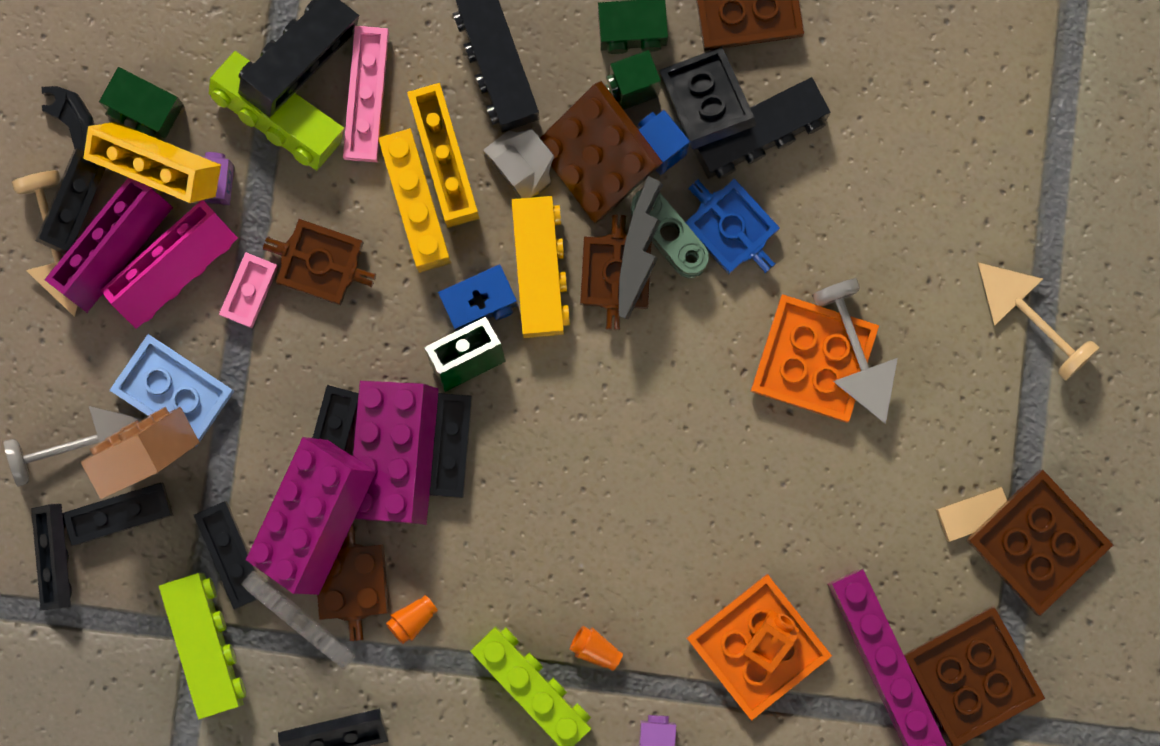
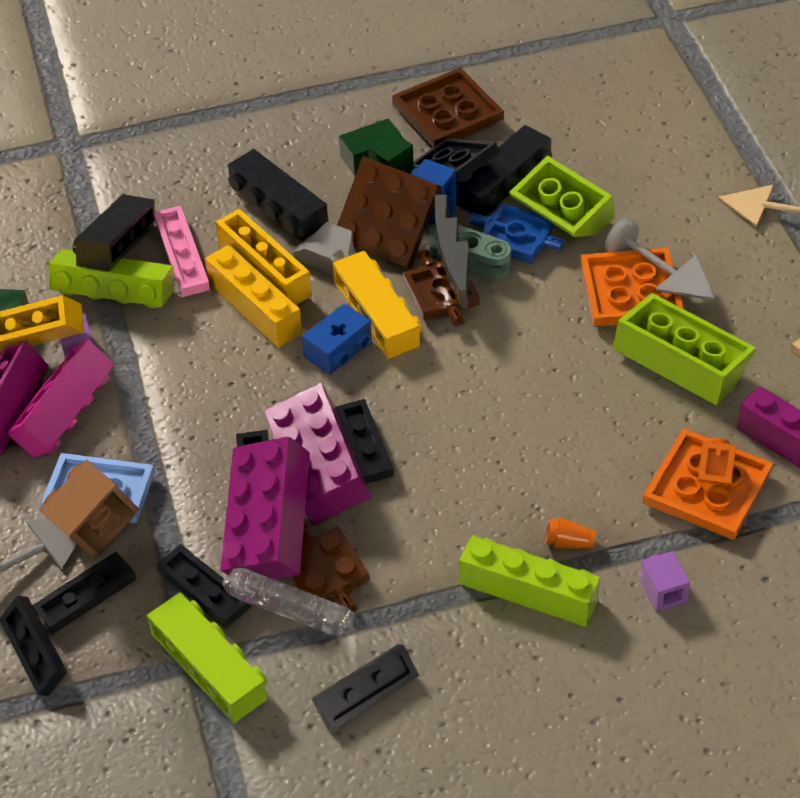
camera: 20 degrees left, 35 degrees down
(248, 290) = (137, 399): bright pink plate -> none
(319, 262) = (191, 361): reddish brown plate -> none
(410, 620) = (392, 574): orange cone -> none
(465, 354) = (346, 369): dark green brick -> none
(796, 213) = (565, 199): none -> lime slope
(820, 475) = (683, 348): none -> lime slope

